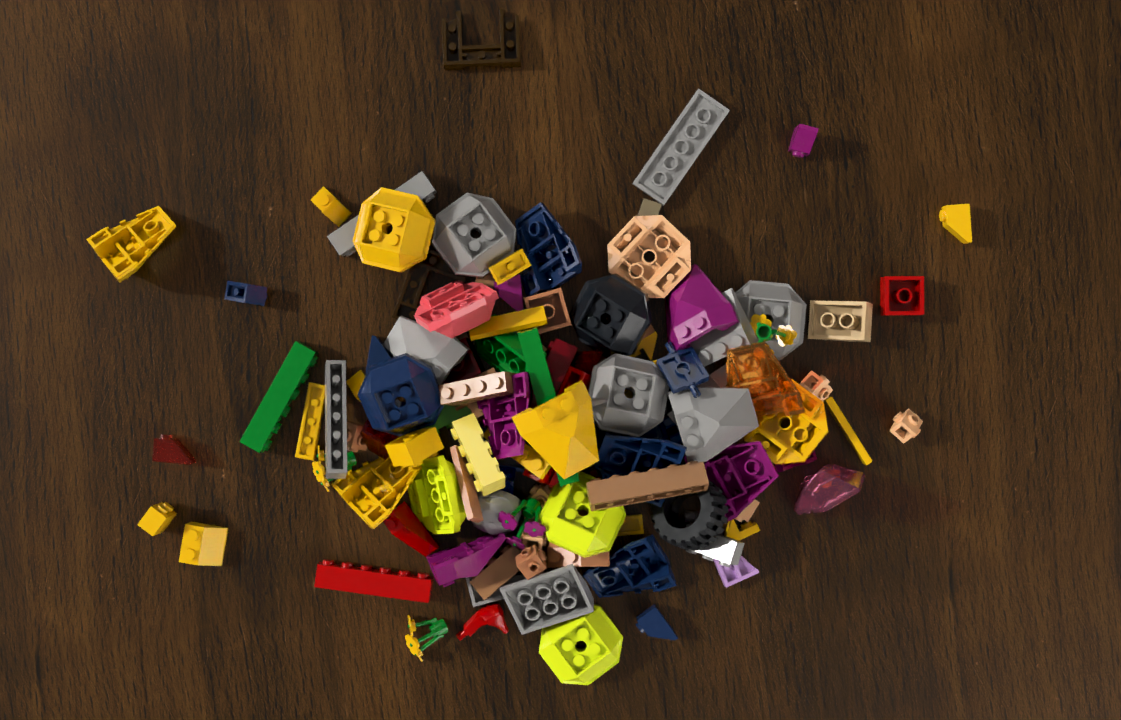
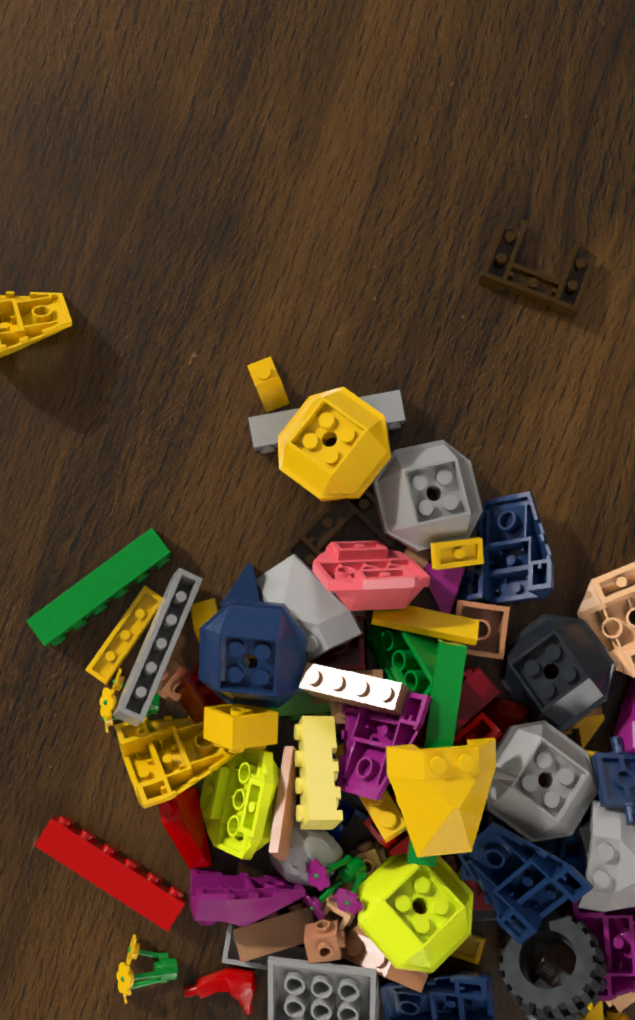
camera: 25 degrees right, 5 degrees down
(246, 293) = (118, 443): dark blue slope -> none
(647, 486) = (517, 911): medium nougat brick -> none

